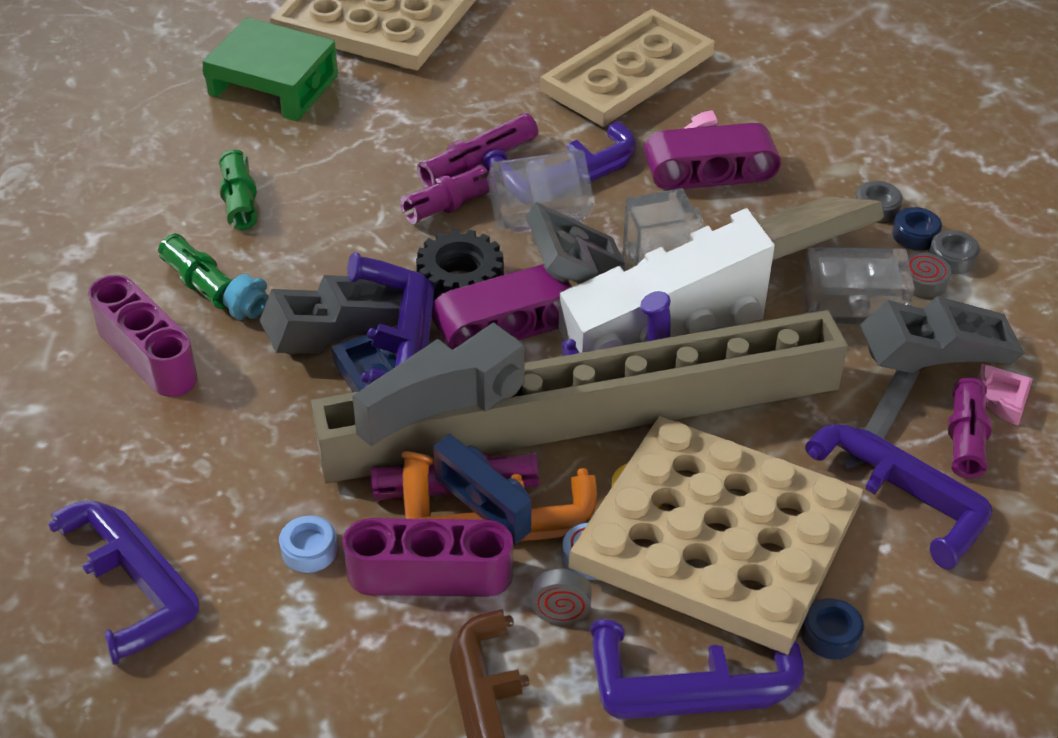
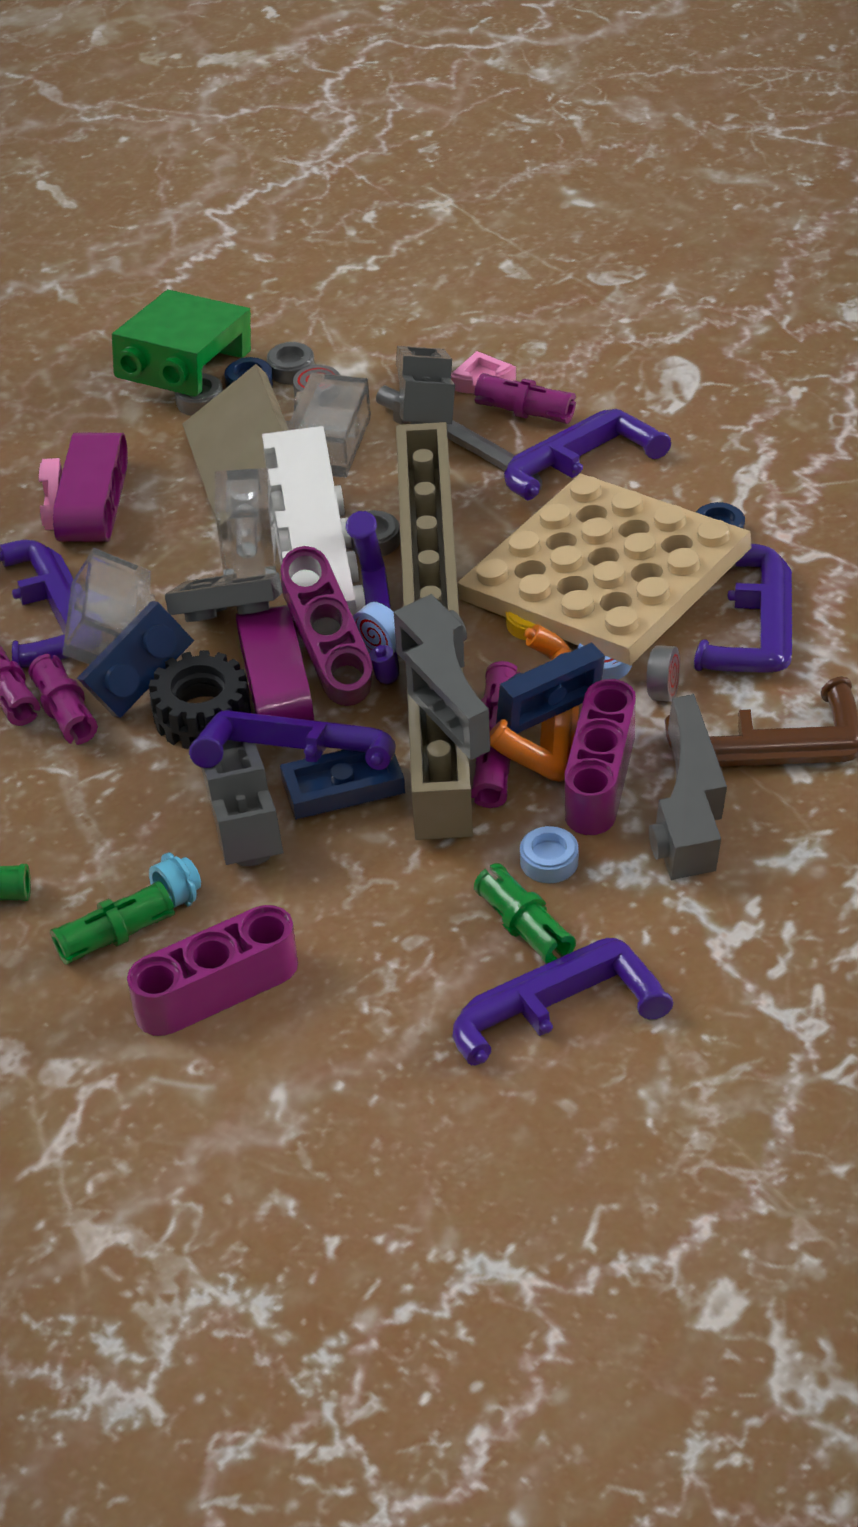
camera: 75 degrees left, 0 degrees up
(222, 532) = (524, 913): none -> green pin
(385, 634) = (686, 821): none -> dark grey slope
(484, 212) = (129, 661): none -> dark blue plate
(543, 345) = (376, 625): none -> light blue tile
(546, 301) = (323, 601): none -> magenta beam
(927, 158) = (176, 338): none -> green panel

